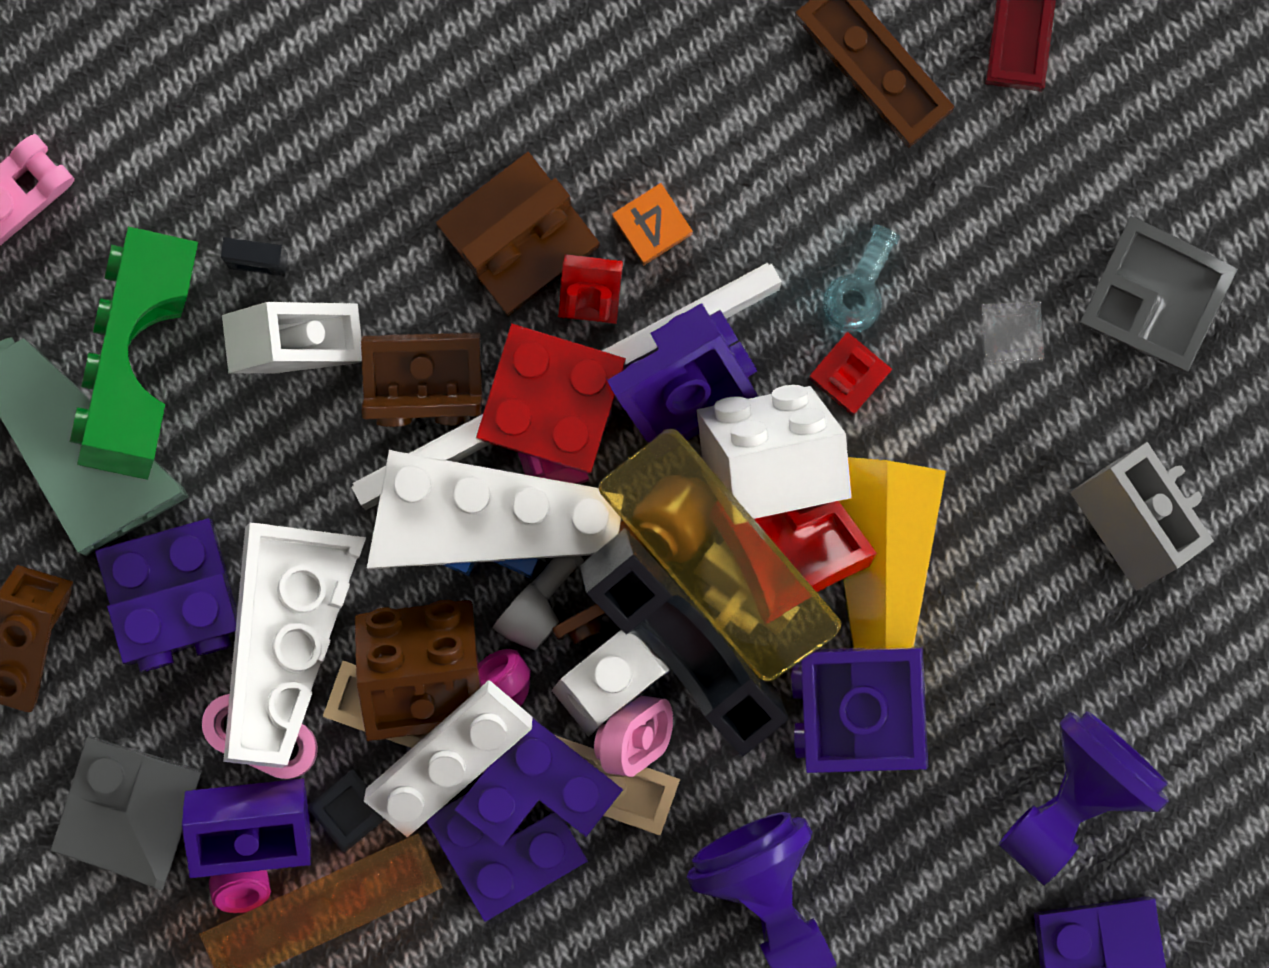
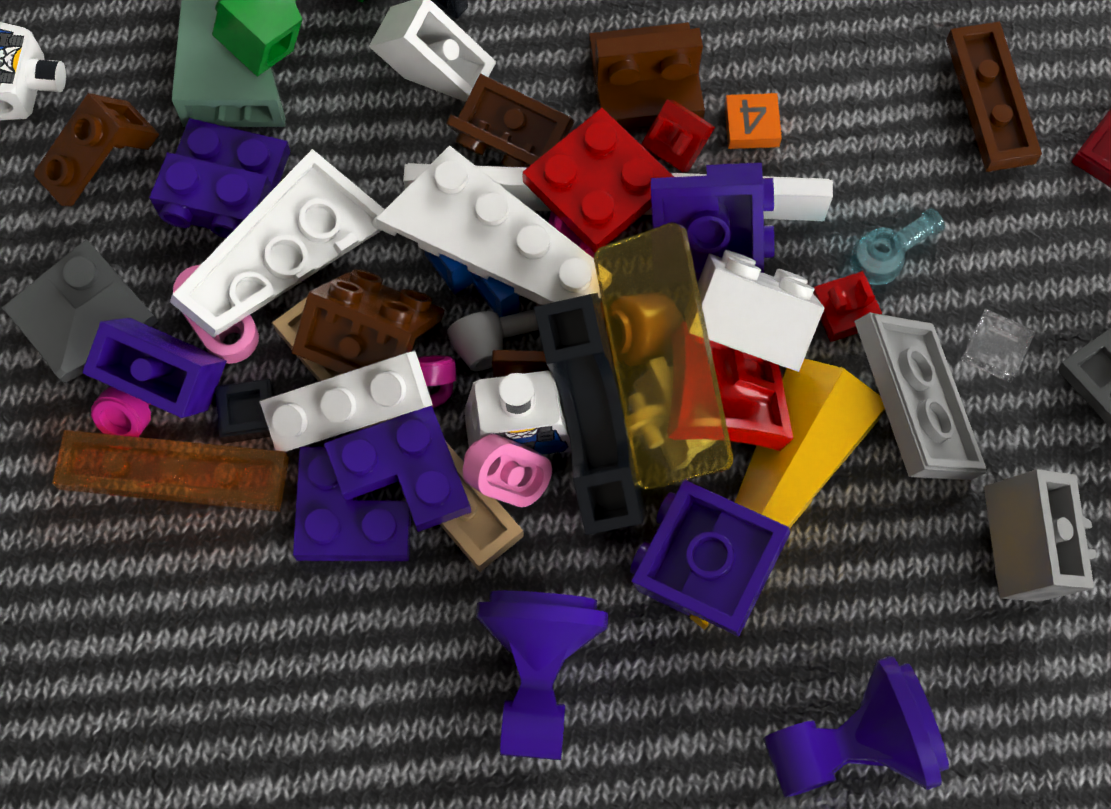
camera: 30 degrees right, 15 degrees down
(969, 440) = (920, 398): none -> light grey tile

